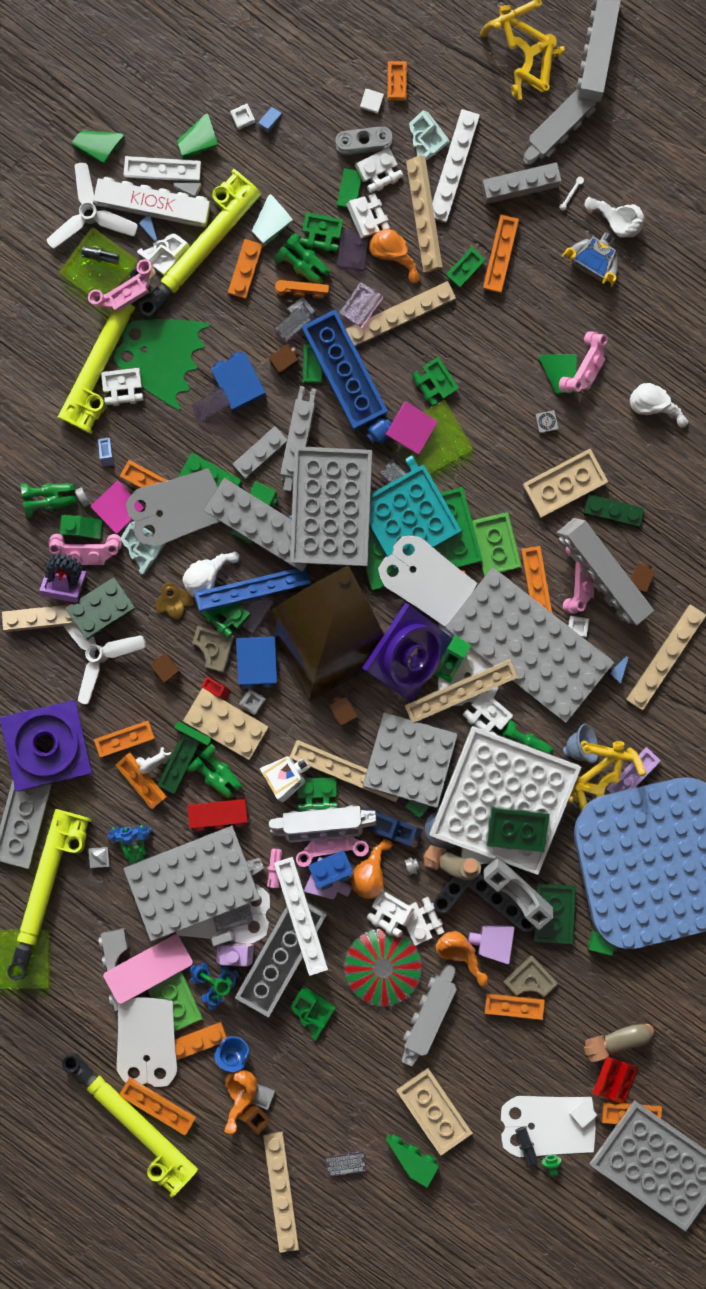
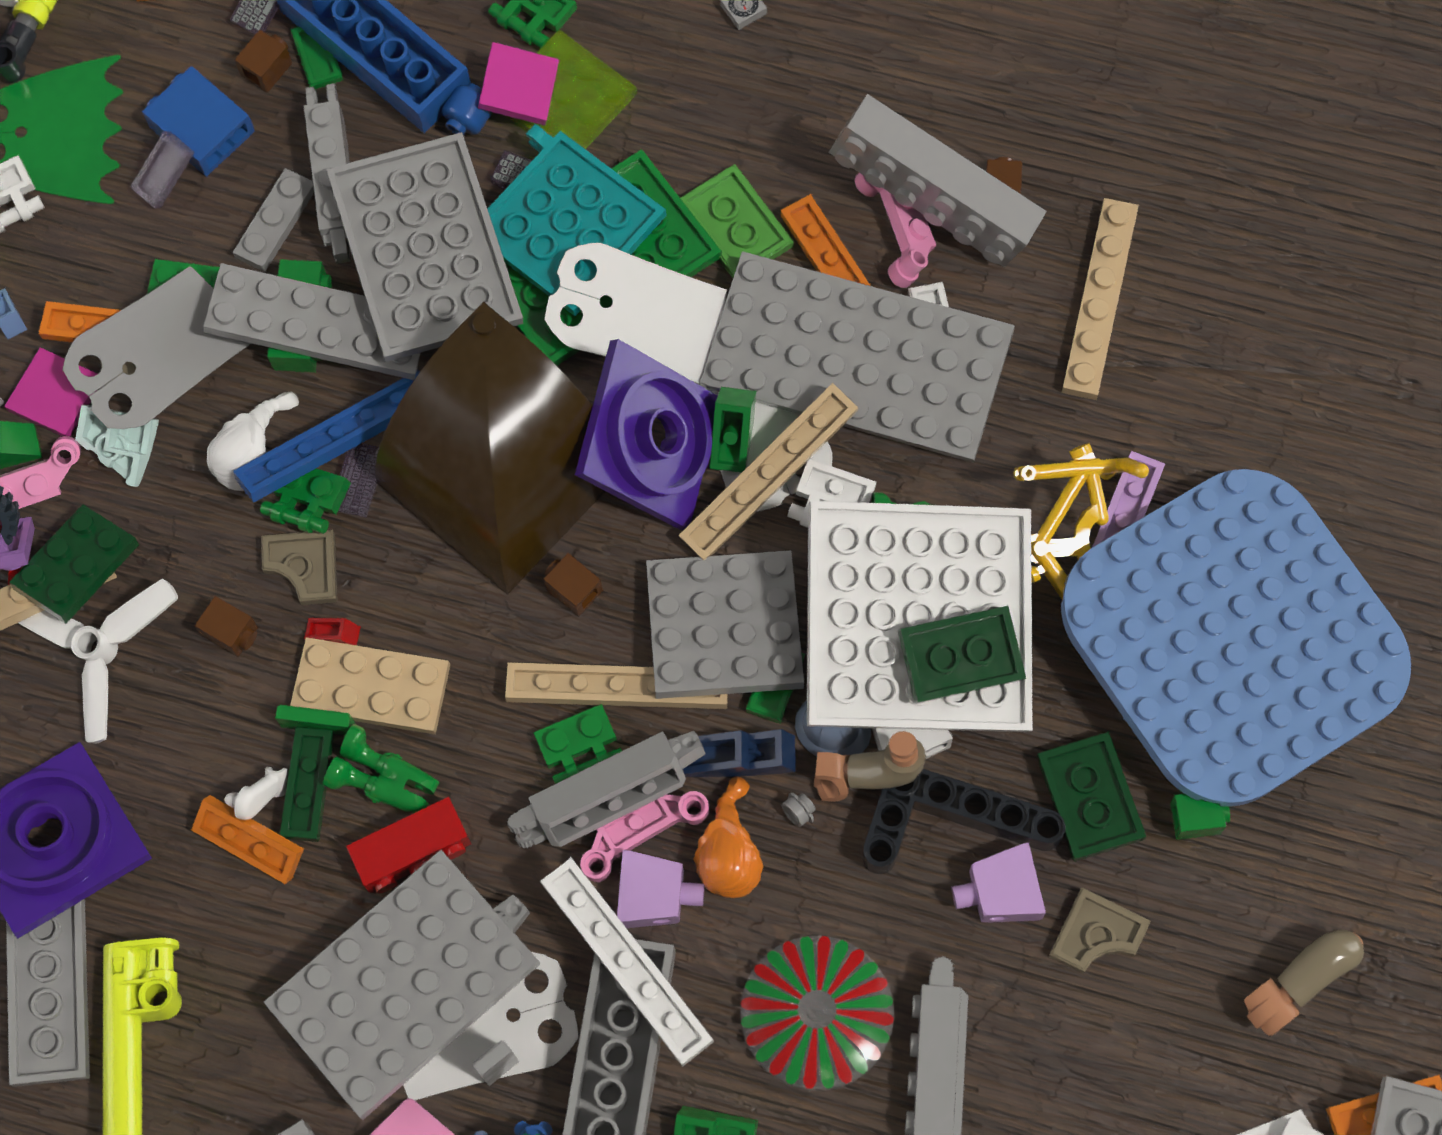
camera: 20 degrees left, 15 degrees down
(99, 857) = (215, 1009): light grey tile -> none
(124, 738) = (192, 777): orange plate -> none
(128, 836) = (251, 936): plant -> none
(175, 603) = (207, 514): pearl gold plate -> none
(233, 918) = (505, 1022): tile -> none
(235, 954) = (530, 1088): lavender torso -> none
(252, 701) = (403, 629): light grey tile -> none
(256, 661) = (388, 556): blue brick -> none
(273, 880) = (551, 914): bright pink axle -> none
(285, 776) = (509, 731): white torso -> none
(331, 869) = (652, 860): blue bracket -> none
(393, 908) = (792, 893): white plate -> none
(417, 926) = (847, 910): white plate -> none
(457, 948) = (940, 922): orange hair -> none
(504, 879) = (1010, 770): light grey arch -> none
(514, 1006) = (1088, 992): orange plate -> none
(565, 483) = (812, 86): tan plate -> none
(573, 747) = (1011, 493): sand blue hat -> none
(613, 510) = (921, 99): dark green plate -> none
(615, 1080) = (1330, 1055): red slope -> none
(618, 671) = (1028, 350): medium blue piece -> none

